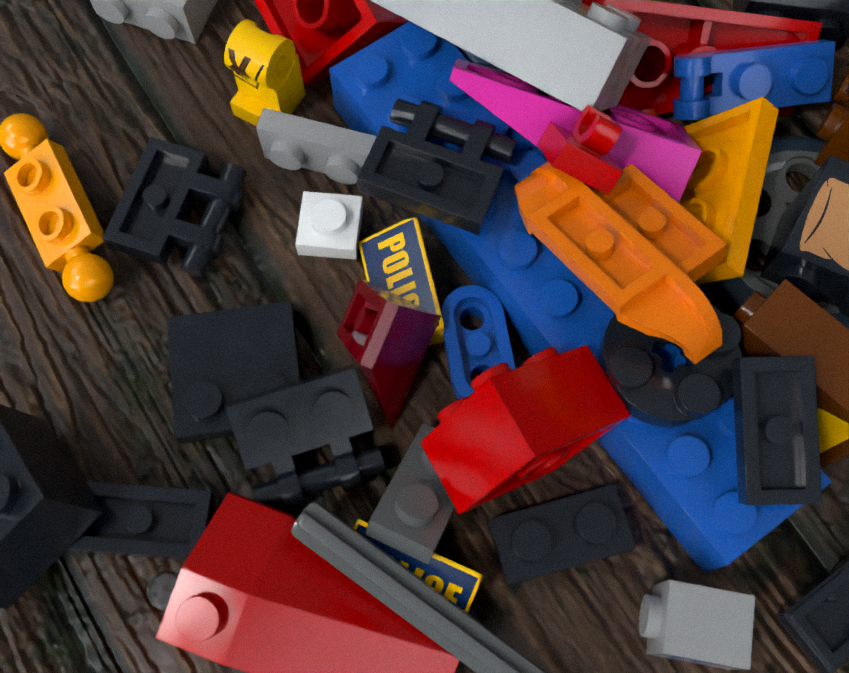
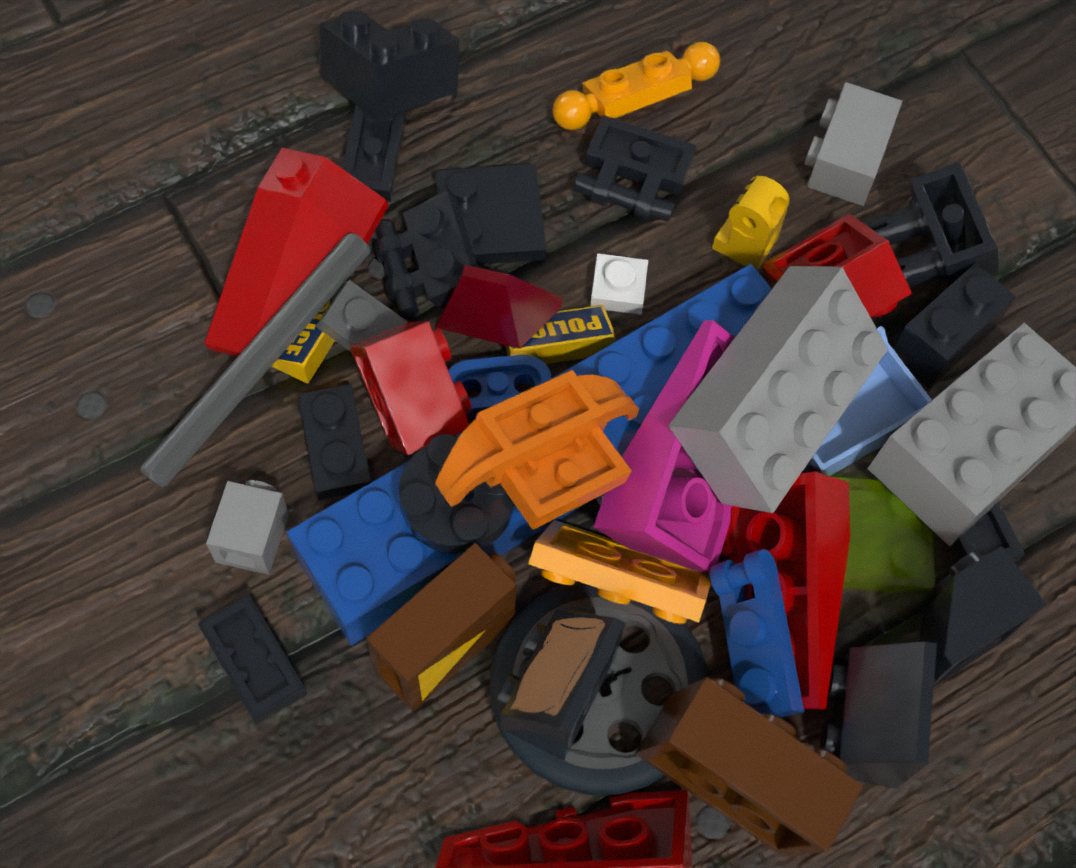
camera: 90 degrees right, 5 degrees down
(313, 145) = (691, 252): light grey plate -> none
(433, 178) = (624, 320): black plate -> none
(585, 150) = (632, 419): red tile -> none
(776, 430) = (381, 553): black plate -> none

